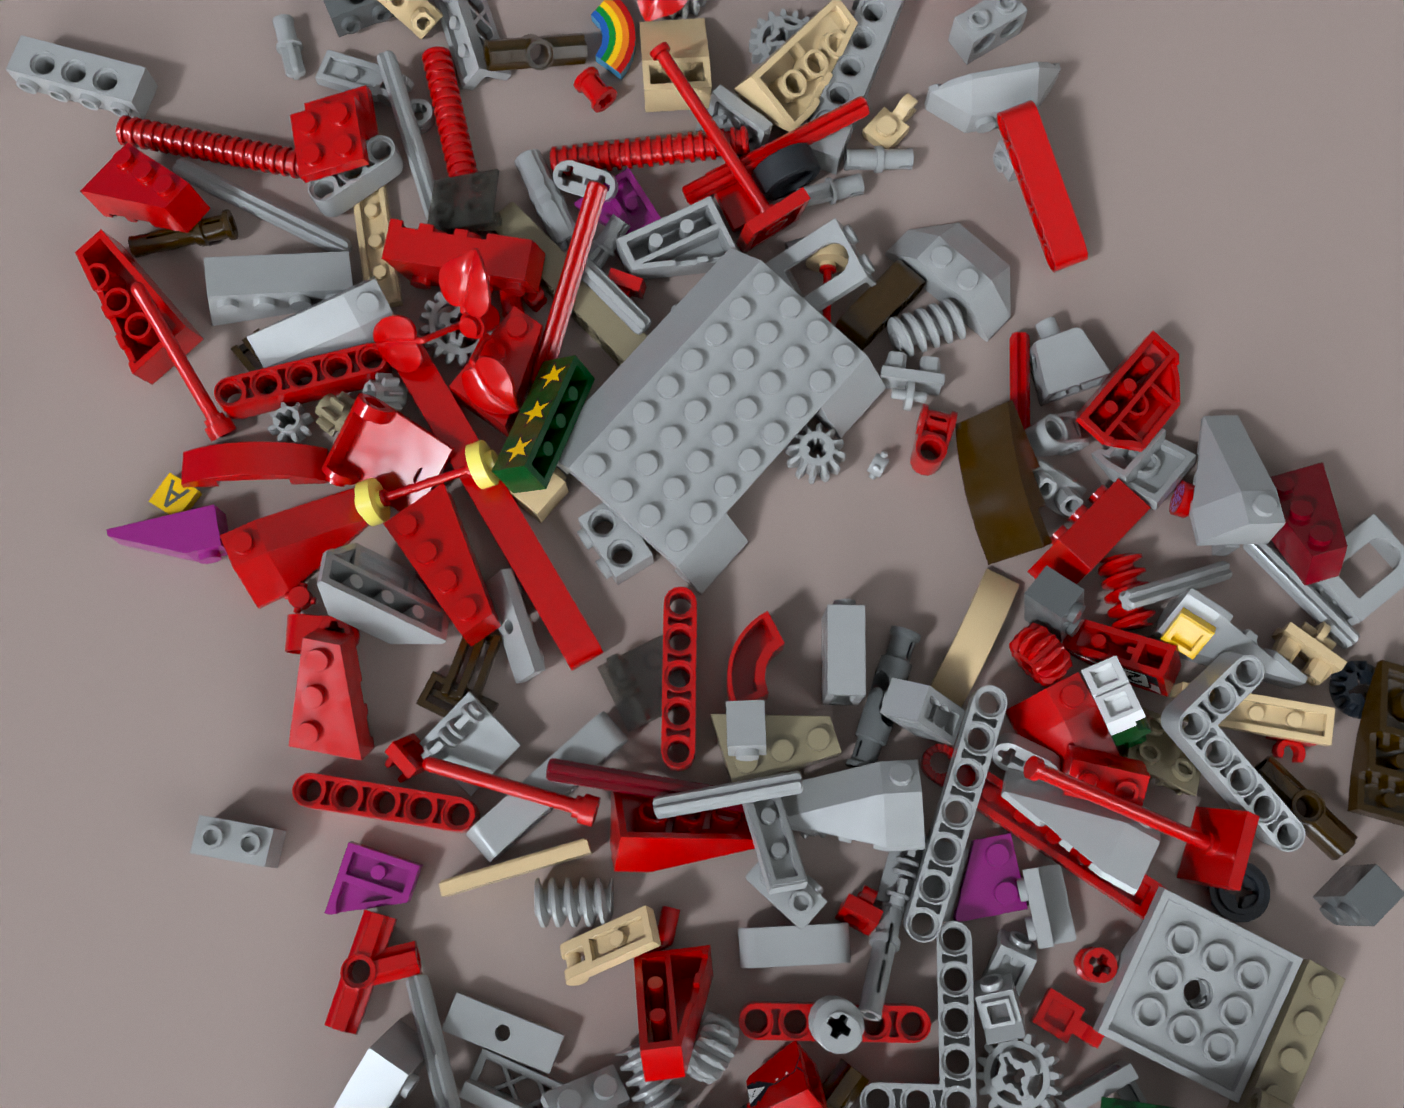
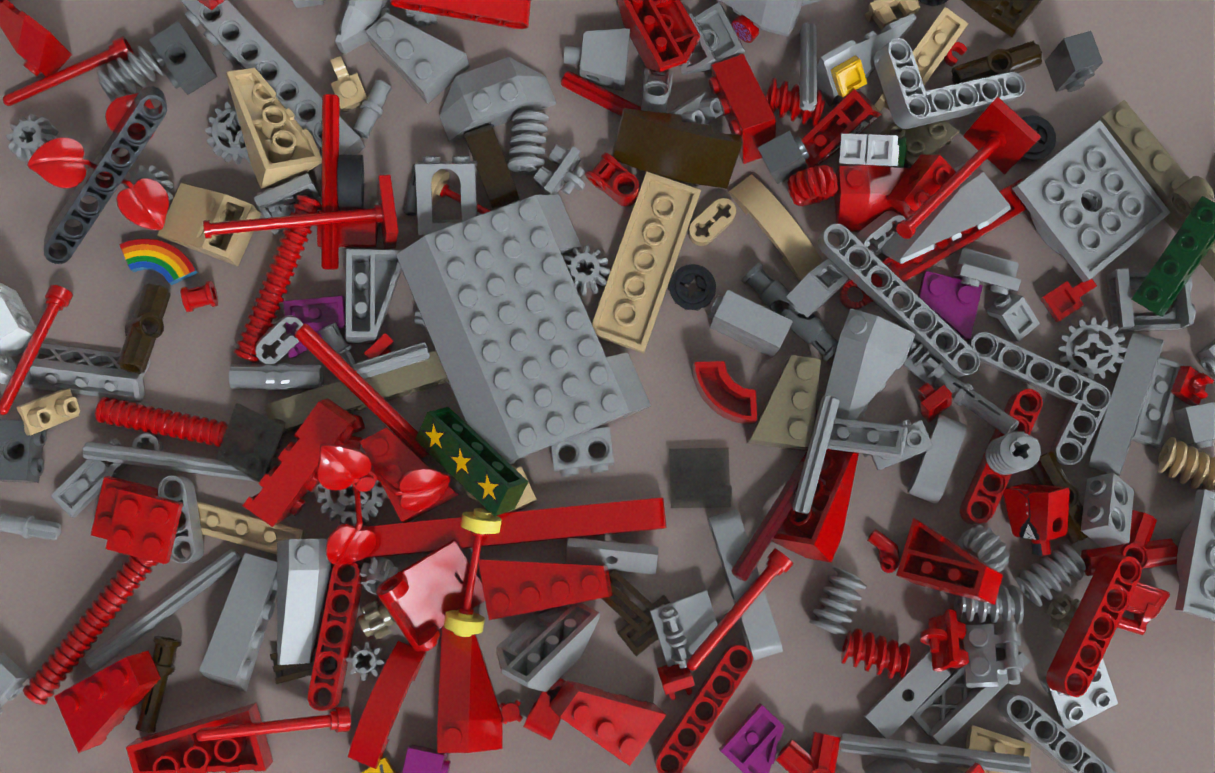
camera: 65 degrees left, 5 degrees up
(515, 867) = (794, 634): tan tile -> none
(533, 971) = (876, 652): none -> red piece
(581, 1044) = (944, 637): none -> red hips
(610, 945) = (882, 589): tan plate -> none
(679, 660) = (727, 450): red beam -> none
(746, 729) = (778, 418): light grey brick -> none
(835, 189) = (379, 156): light grey axle -> none
(858, 513) = (645, 262): none -> tan plate
(866, 565) = (686, 275): none -> black gear
(878, 465) = (614, 229): light grey piece -> none
(945, 558) = (716, 227): none -> tan beam
(959, 175) = (417, 56): none -> light grey wedge
(999, 1008) = (1043, 338): light grey window -> none
(1105, 960) = (1048, 254): red bush -> none

